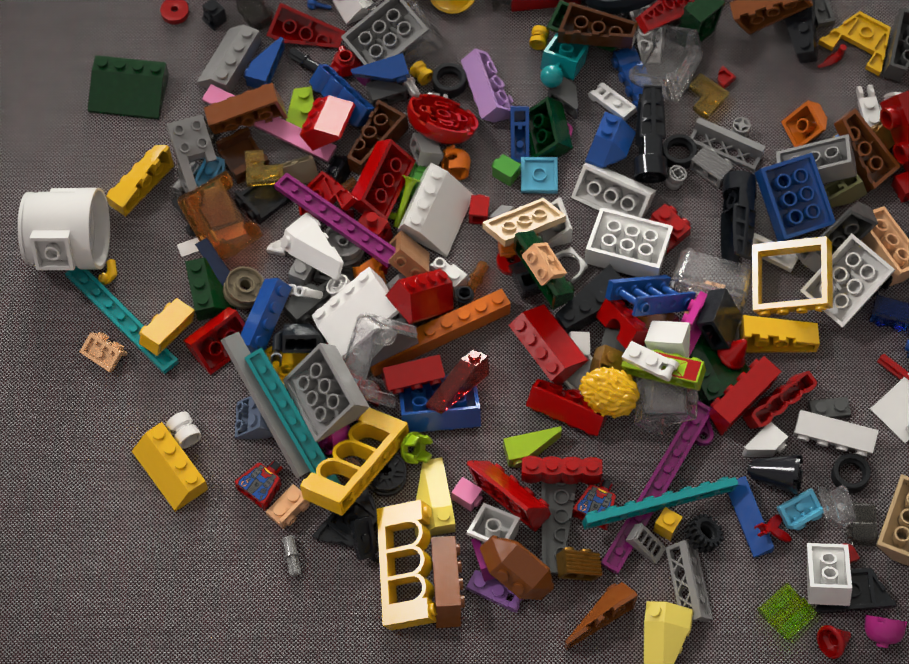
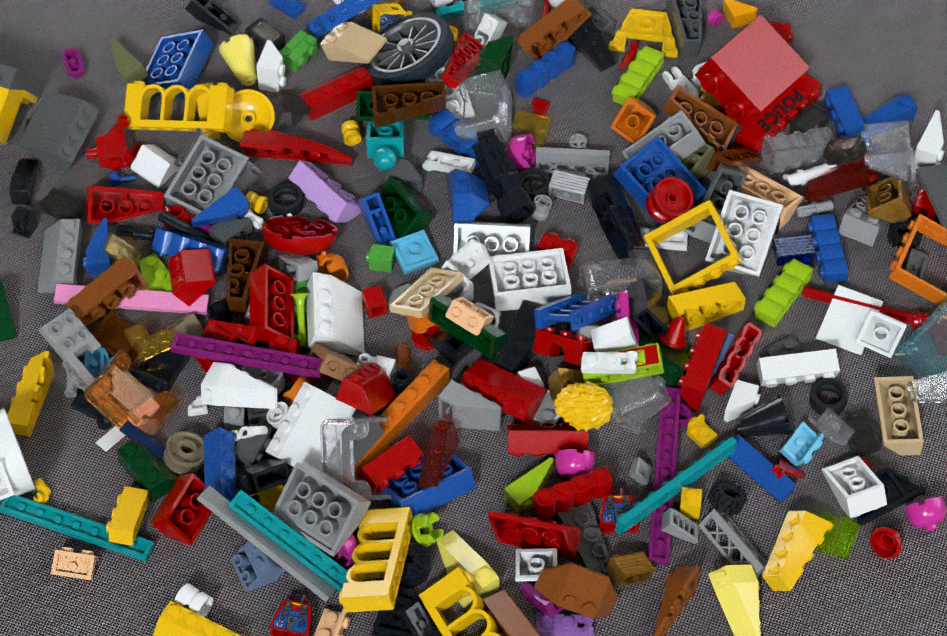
camera: 25 degrees left, 10 degrees down
(283, 78) = (118, 248): none -> clear yellow plate
(345, 72) = (181, 226): none -> black axle
(467, 494) = (495, 550): bright pink brick -> none
(473, 29) = (289, 147): none -> red wedge
(508, 347) = (468, 408): none -> light grey slope
(579, 442) = (572, 463): none -> dark pink cylinder
(582, 204) = (471, 258): none -> white bracket
(637, 473) = (640, 471): none -> light grey plate
(683, 116) = (521, 151): none -> dark pink cylinder
(713, 457) = (700, 432): none -> yellow bracket
(740, 610) = (794, 548): none -> yellow wedge
(745, 42) = (545, 69): none -> blue brick
(783, 380) = (727, 343): none -> medium blue bar
(802, 220) = (669, 199): none -> red wheel
(832, 81) = (639, 75): none -> lime brick
(860, 352) = (783, 292): none -> lime brick
(876, 201) = (733, 158): none -> reddish brown fence

